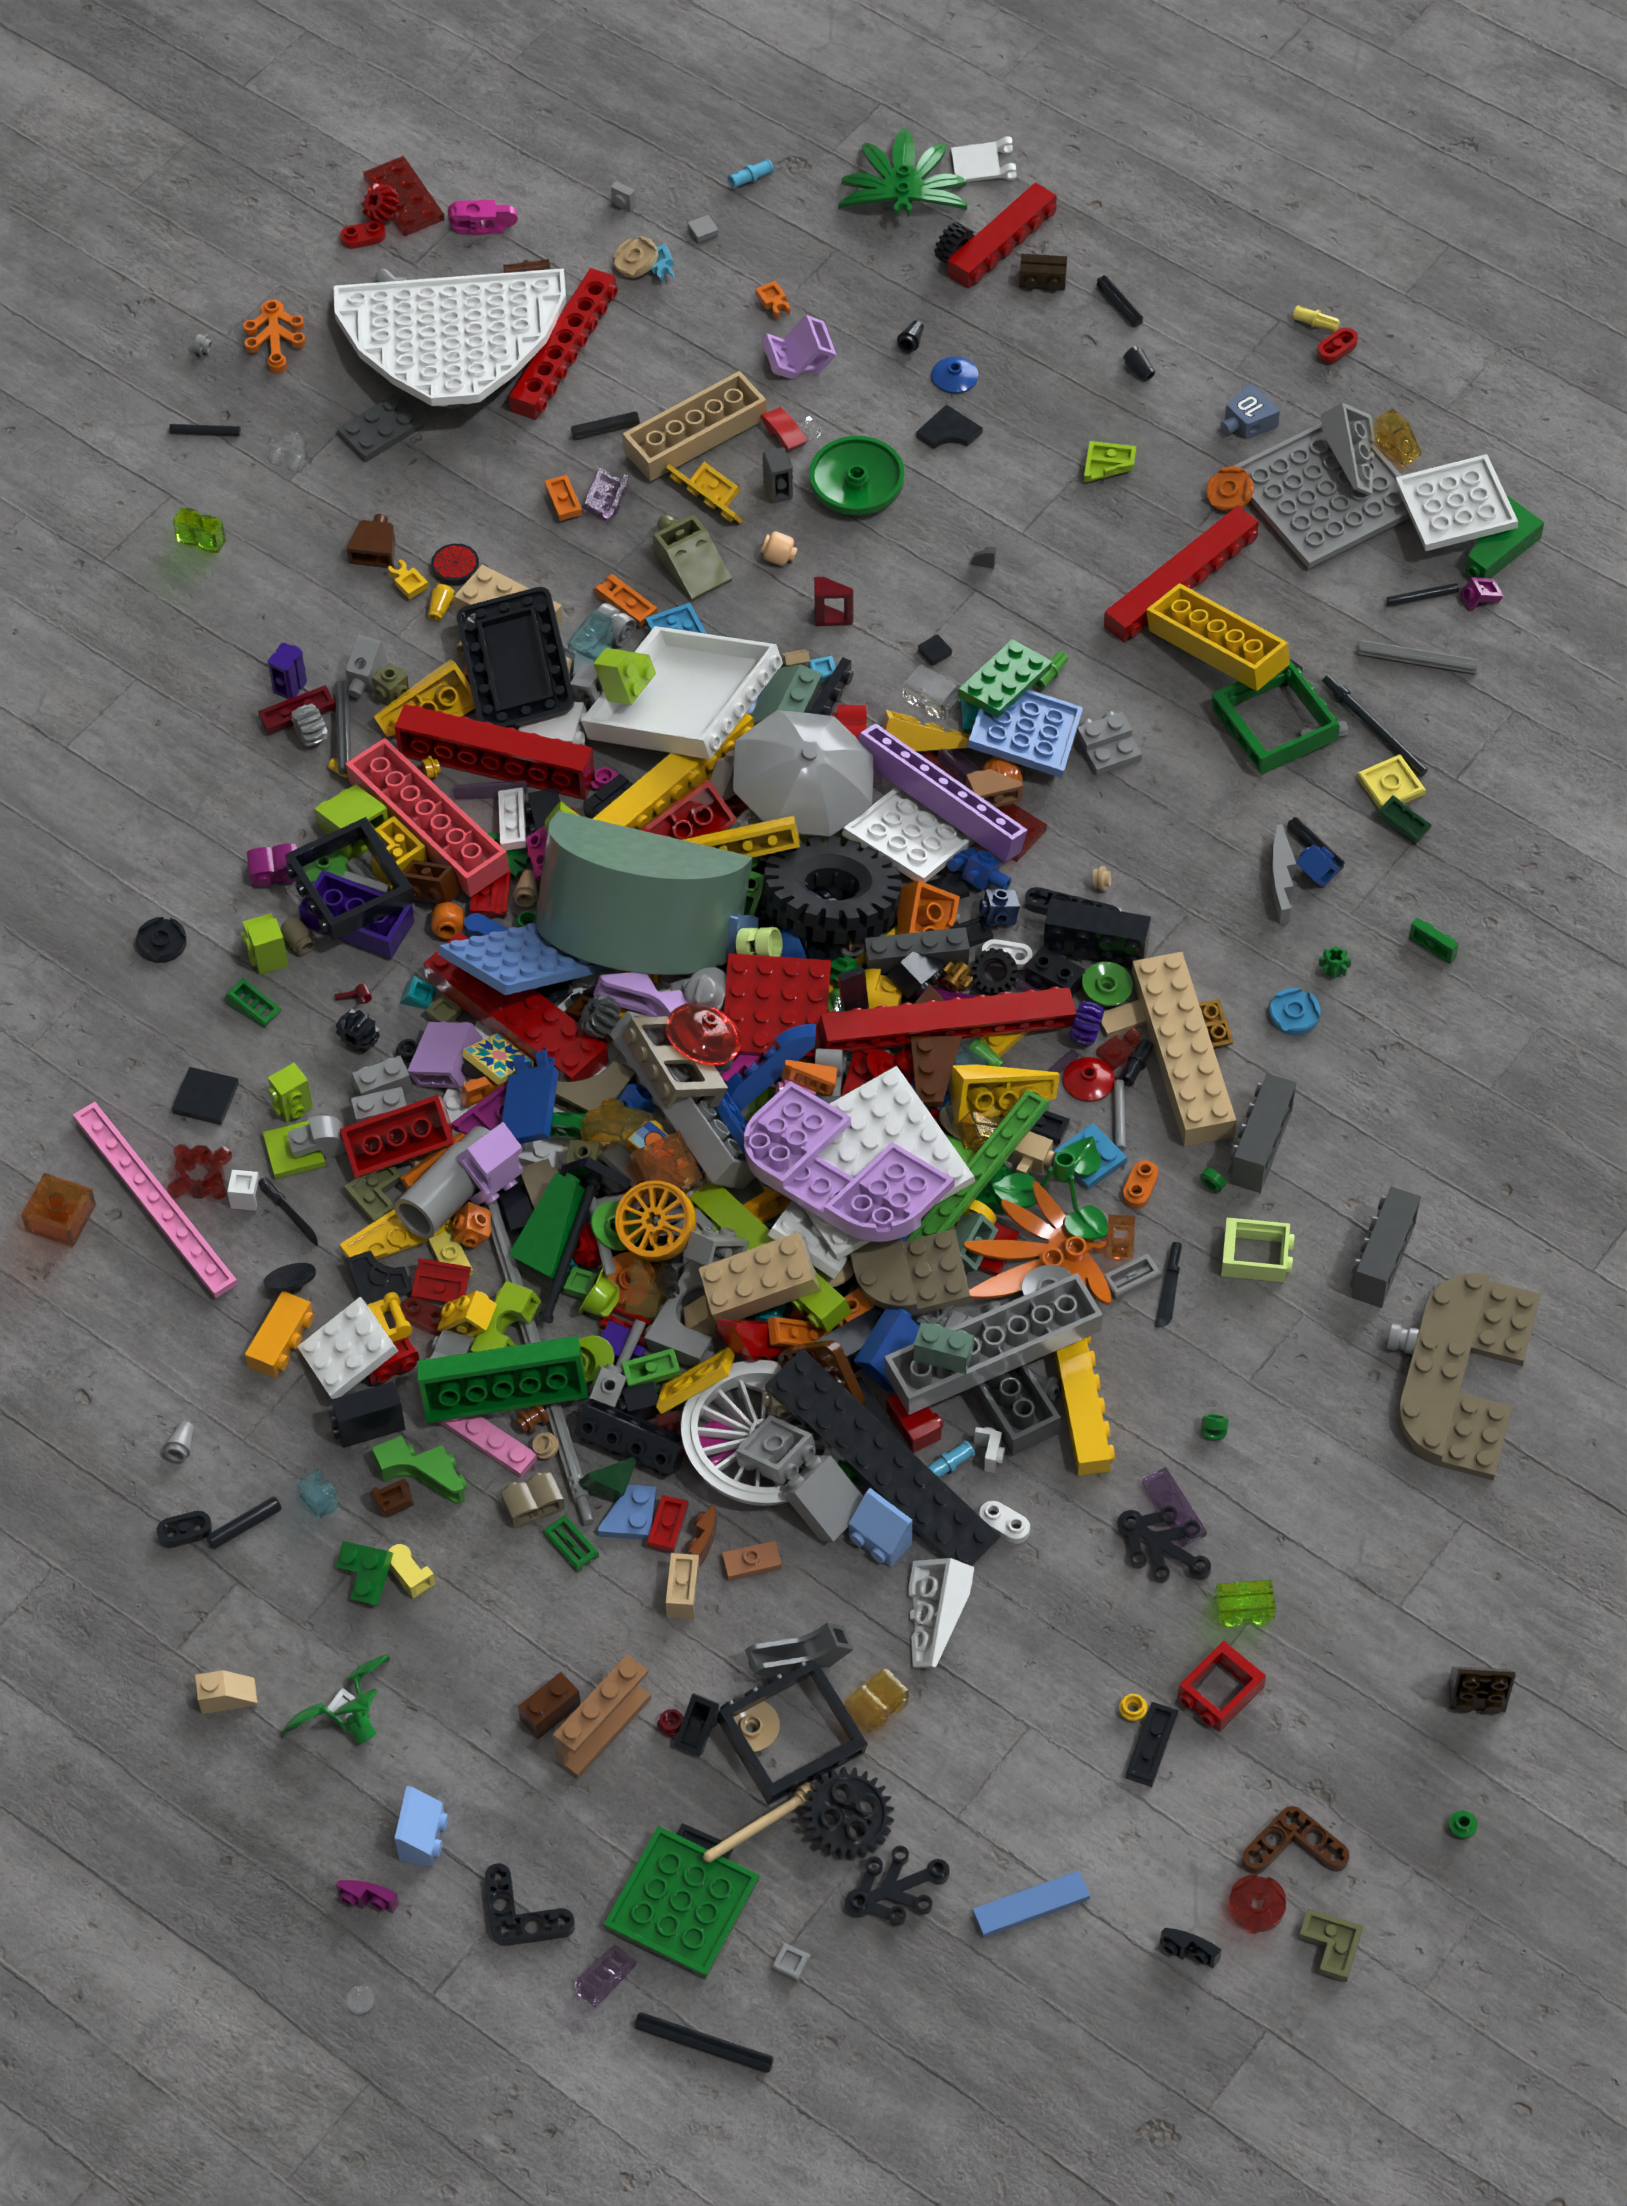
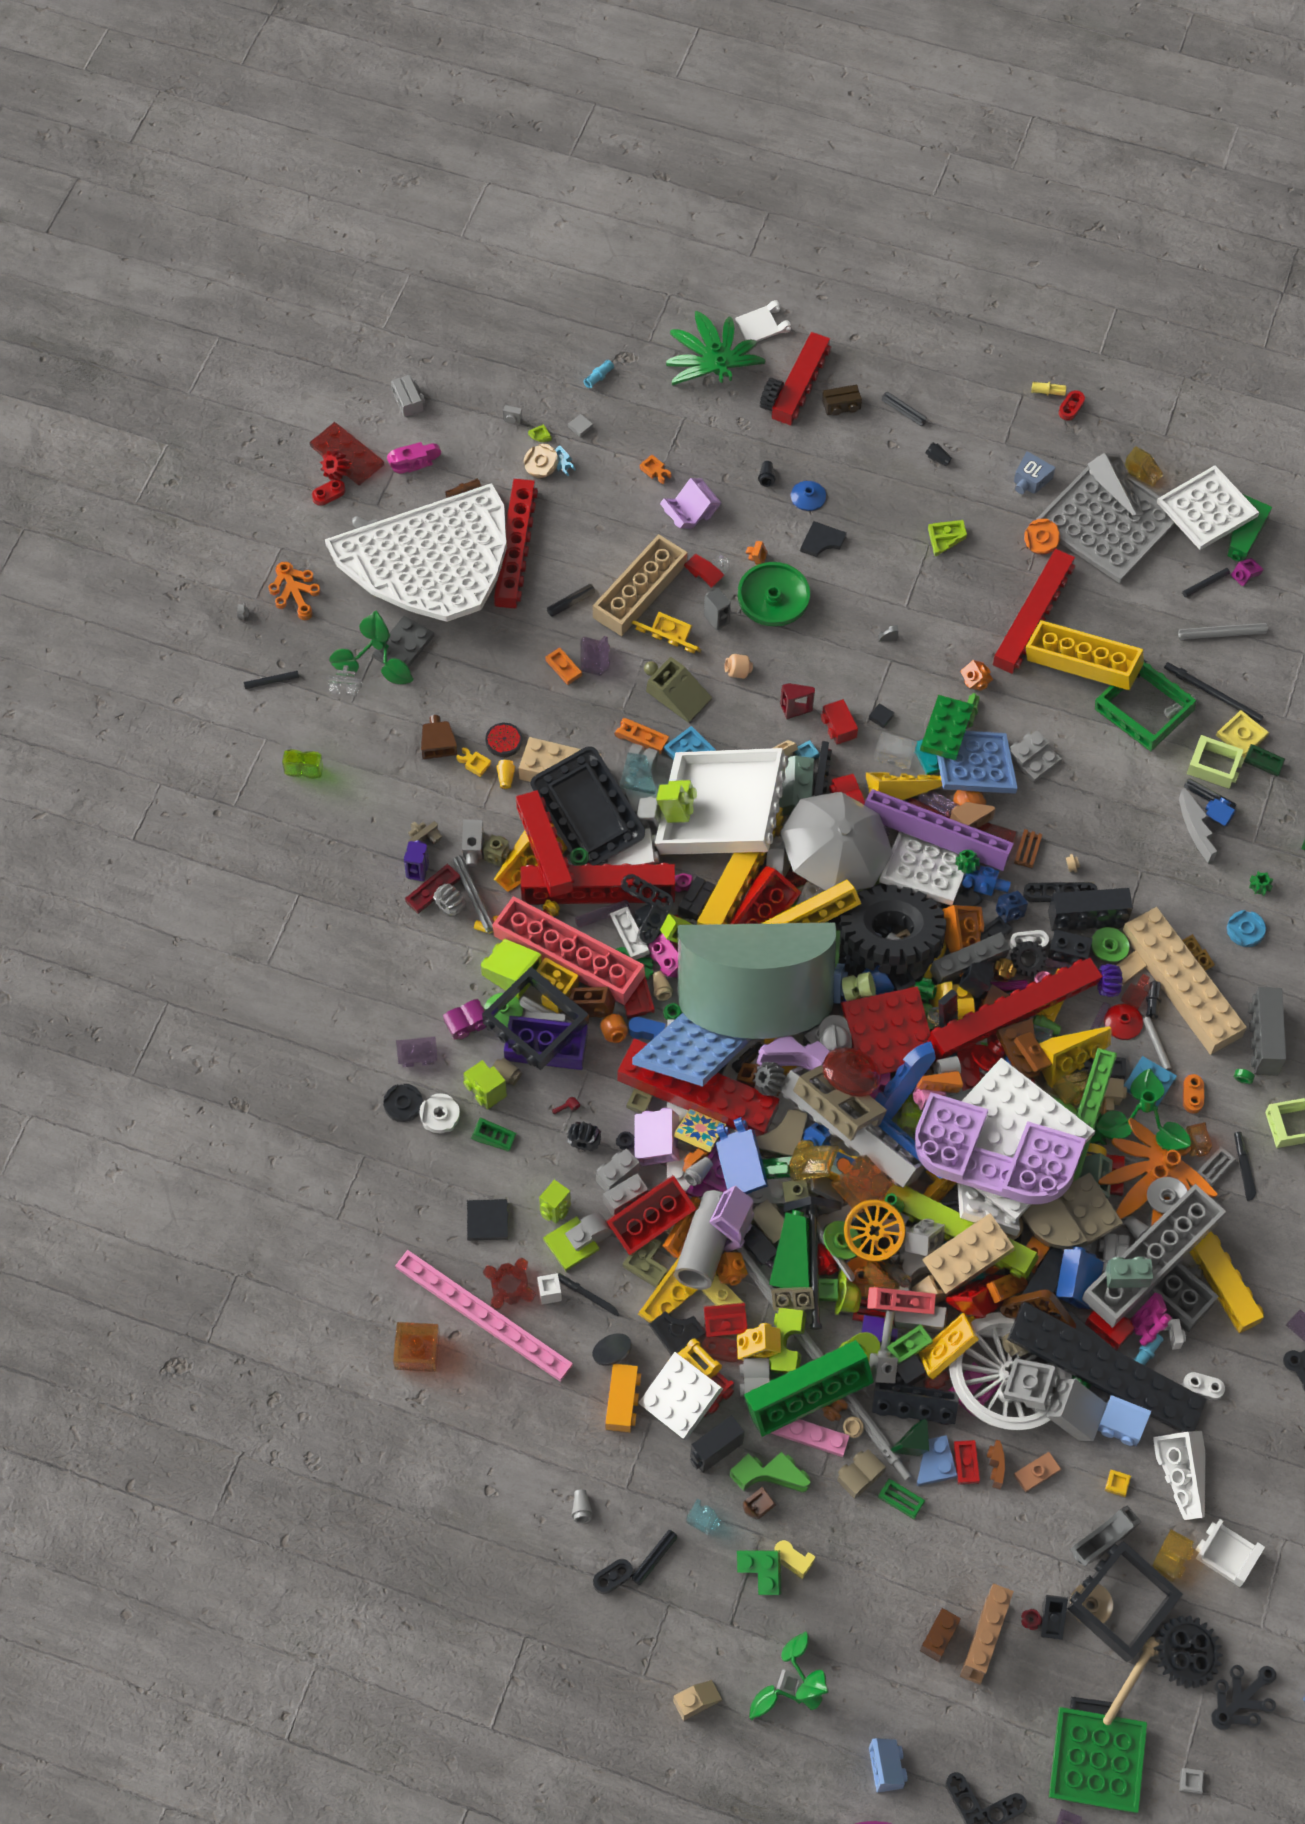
camera: 20 degrees left, 5 degrees up
(200, 885) = (417, 1050): none -> clear purple bracket
(202, 974) = (433, 1105): none -> white plate
(313, 644) = (429, 832): none -> dark tan hips
(337, 391) = (374, 628): none -> green plant
(417, 993) = (612, 1092): teal slope -> none
(441, 684) = (544, 843): none -> red brick
(473, 1101) = (697, 1172): none -> light grey cone
(482, 706) = (579, 851): none -> green plate
(503, 145) = (407, 395): none -> light grey brick
(531, 1276) = (793, 1298): none -> dark tan slope
(549, 791) = (655, 907): none -> black beam
(649, 227) = (540, 434): none -> lime tile
(659, 1312) = (901, 1300): none -> coral slope
(682, 1586) = (998, 1509): tan panel -> none
(700, 1201) = (896, 1201): none -> green cone
(847, 1601) = (1117, 1483): none -> yellow tile
(860, 423) = (757, 553): none -> orange tile
(877, 643) = (839, 722): none -> red brick
(942, 1072) = (1032, 1052): none -> dark orange plate
(950, 1718) = (1228, 1553): none -> white panel
(961, 837) = (967, 861): none -> green gear
(964, 1421) = (1151, 1314): none -> dark pink plate
(1064, 834) = (1032, 835): none -> dark orange tile
(1073, 630) = (976, 675): none -> orange brick
(1342, 830) = (1210, 774): none -> yellowish green window

